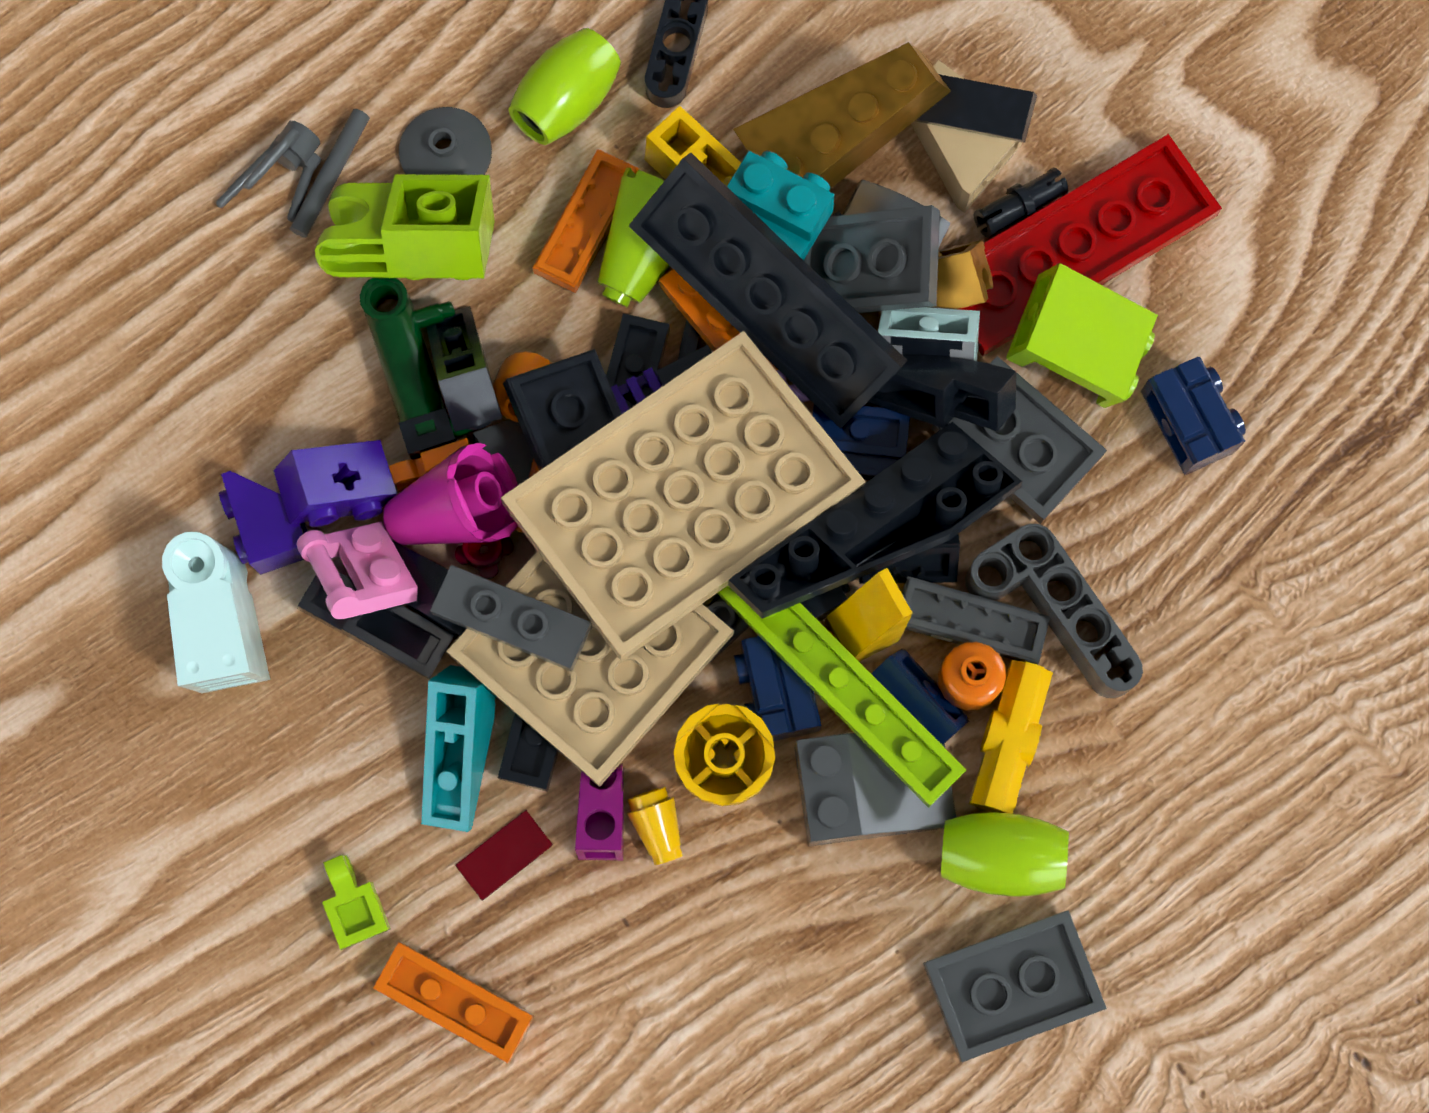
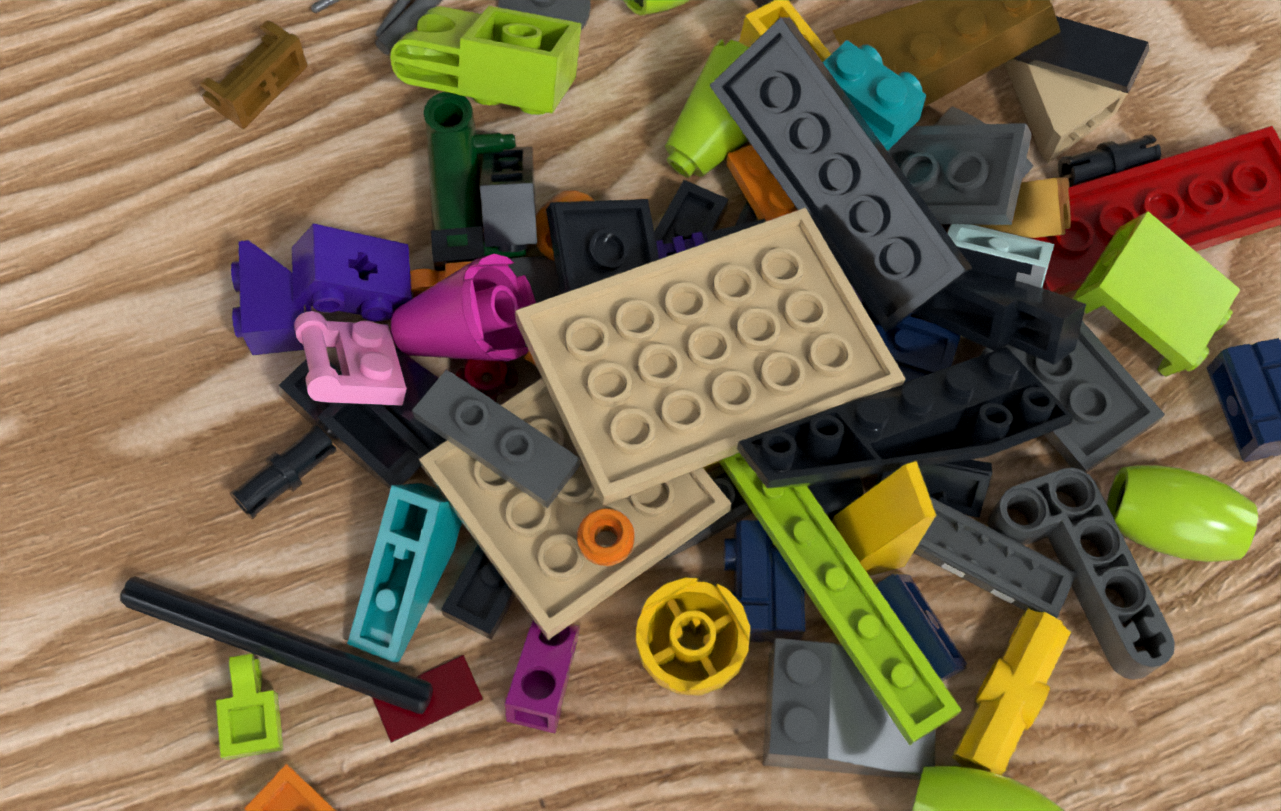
camera: 10 degrees right, 10 degrees down
(184, 292) = (258, 77): none -> pearl gold hinge
(211, 616) = (185, 374): light aqua piece -> none
(322, 682) = (283, 471): none -> black pin
(358, 839) = (277, 645): none -> black axle
(583, 223) = (660, 95): orange plate -> none
(630, 672) = (601, 521): none -> orange plate
(656, 824) = (601, 700): yellow cone -> none
(965, 691) = (980, 615): orange head -> none
(1133, 542) = (1182, 513): none -> lime piece

